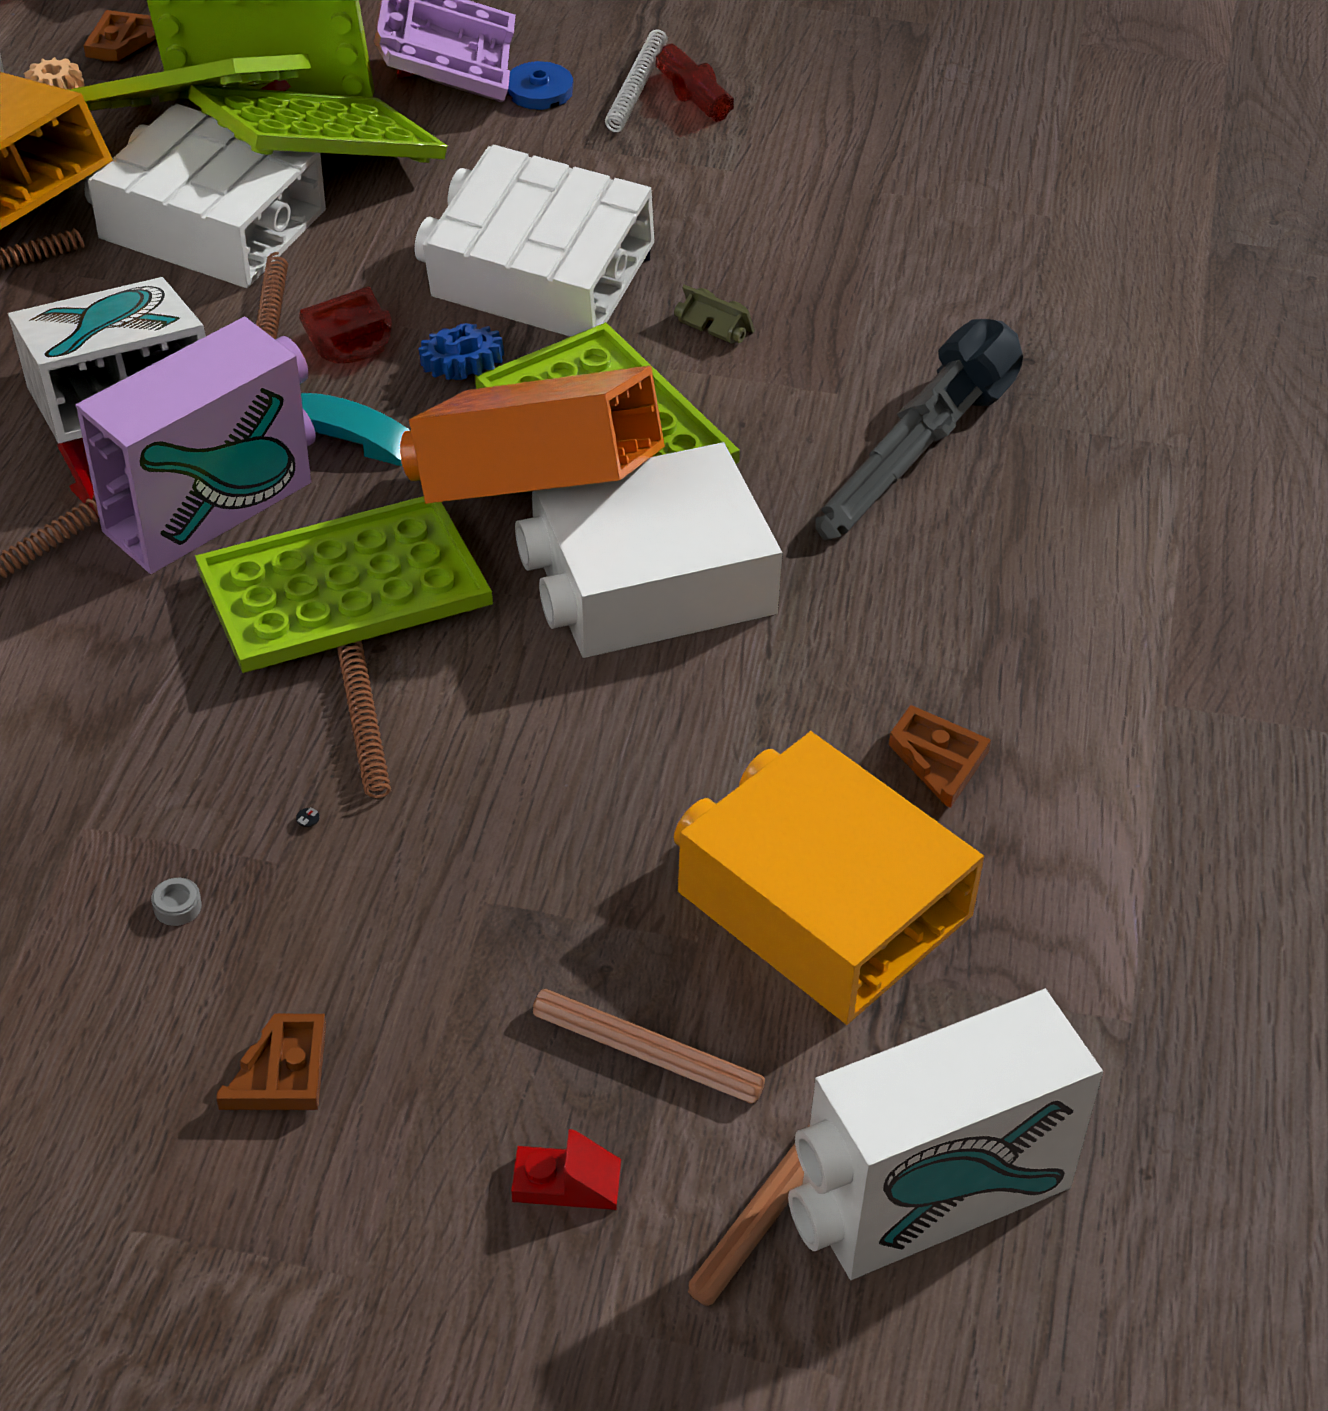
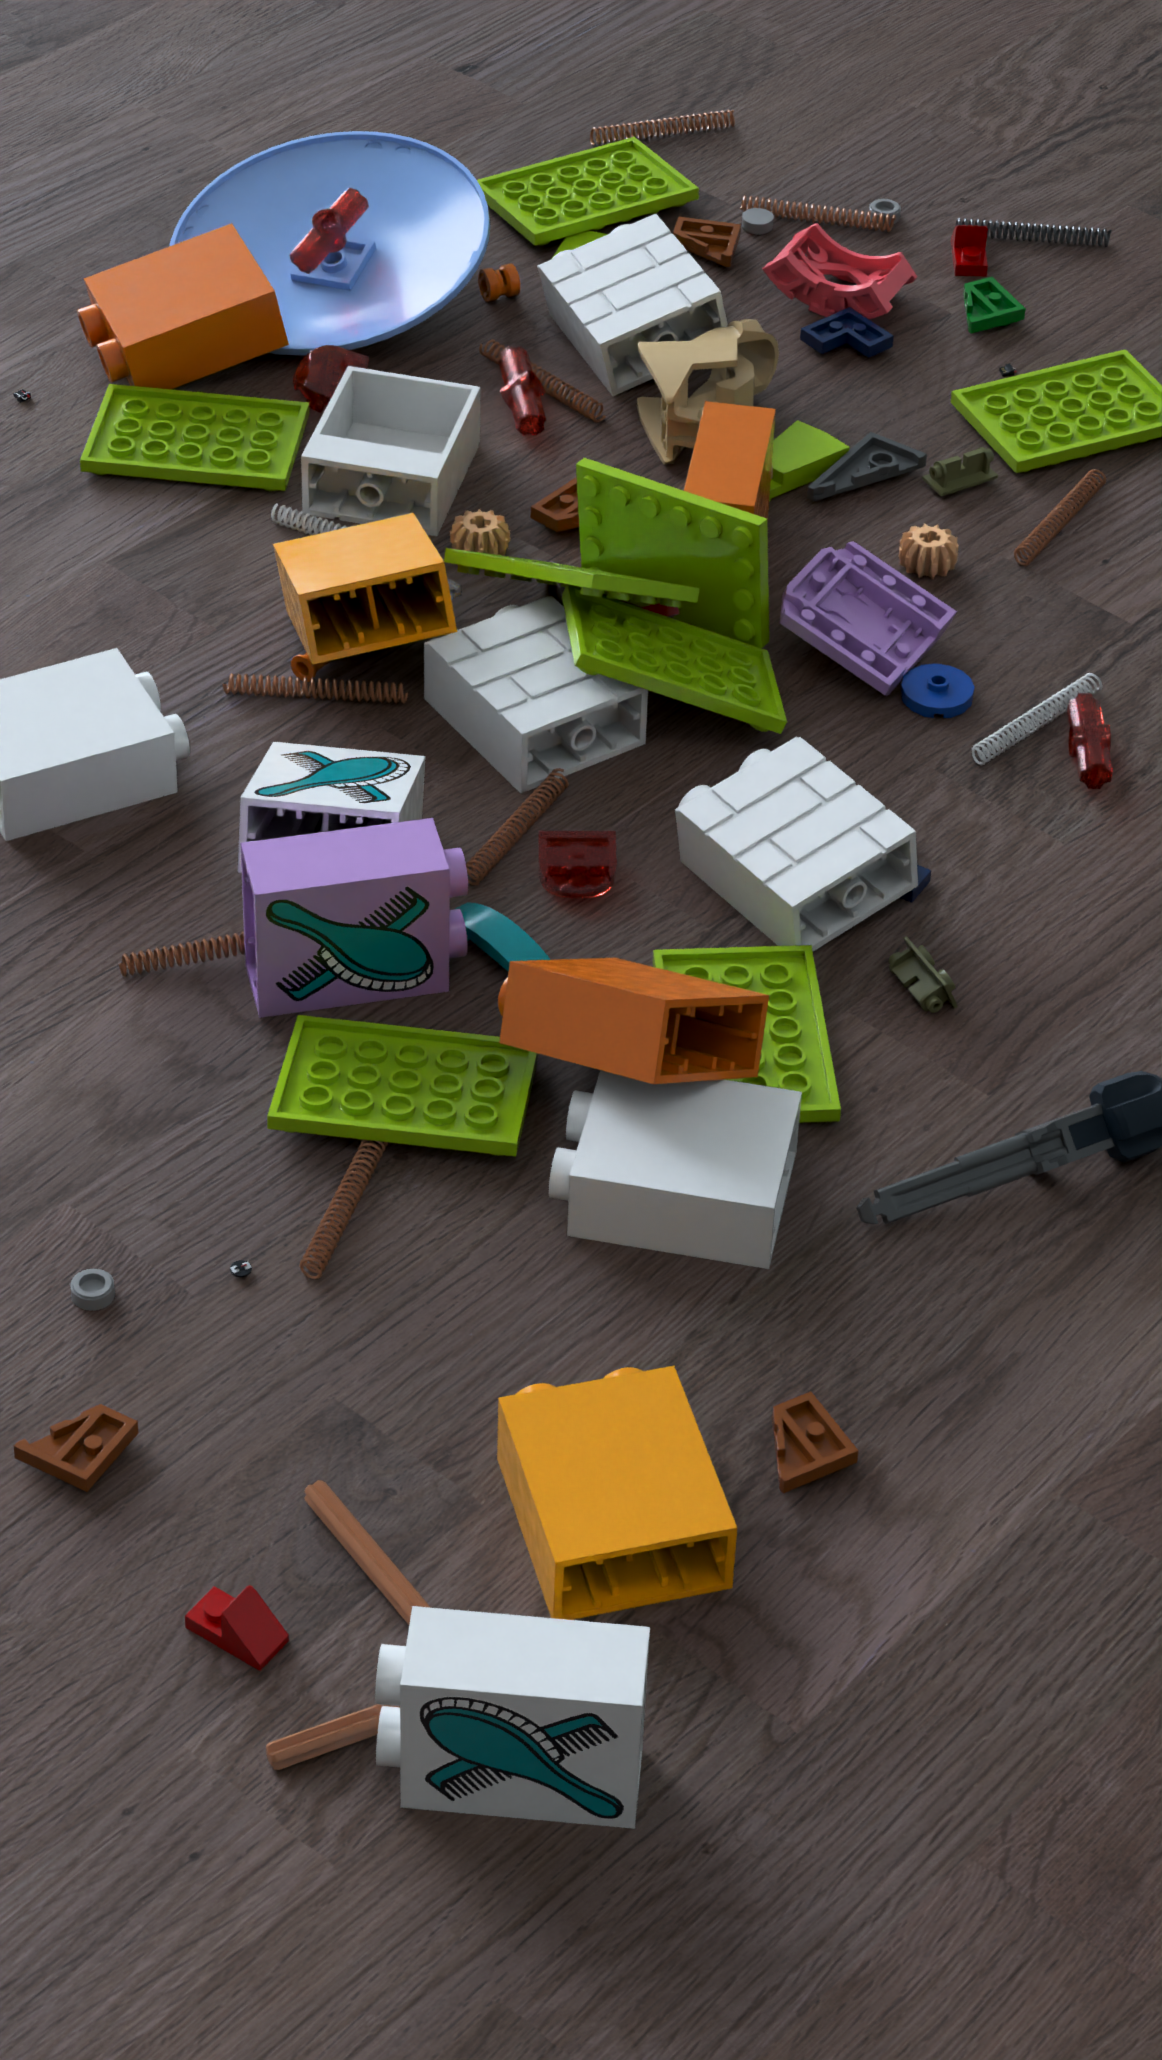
camera: 30 degrees right, 5 degrees down
(461, 351) = (657, 922): blue gear -> none

